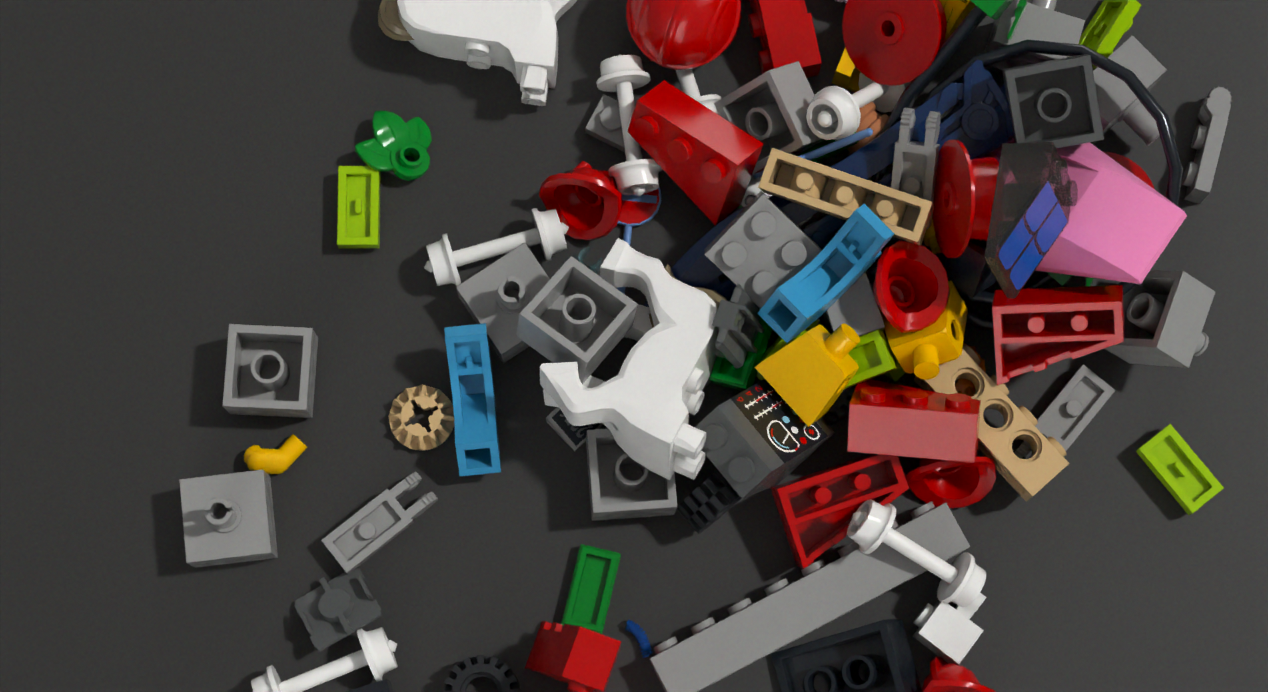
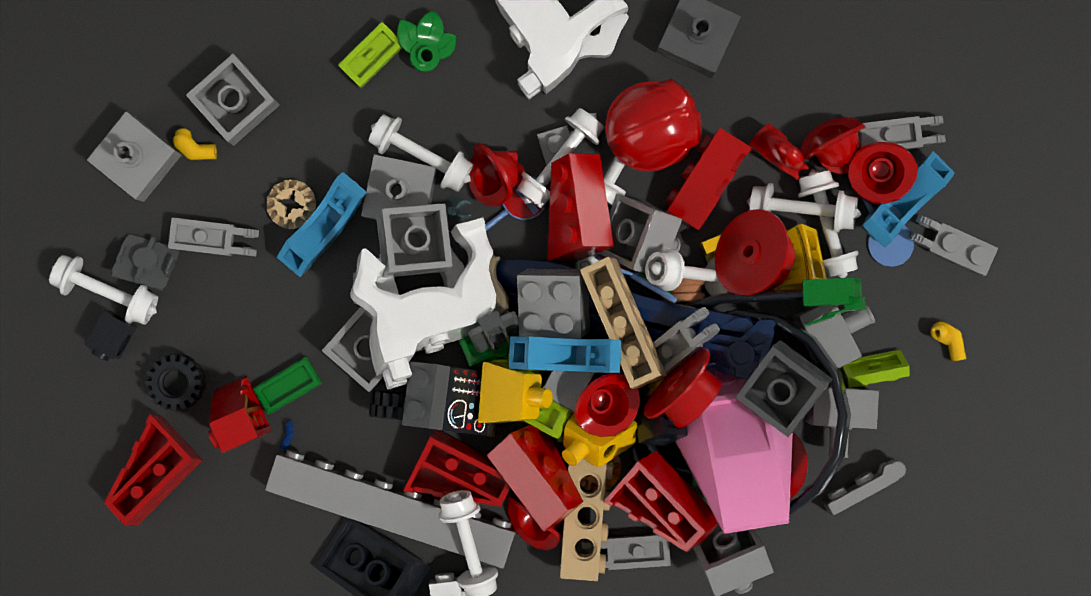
camera: 45 degrees right, 10 degrees up
(1027, 211) = (703, 434): clear smoke slope -> none

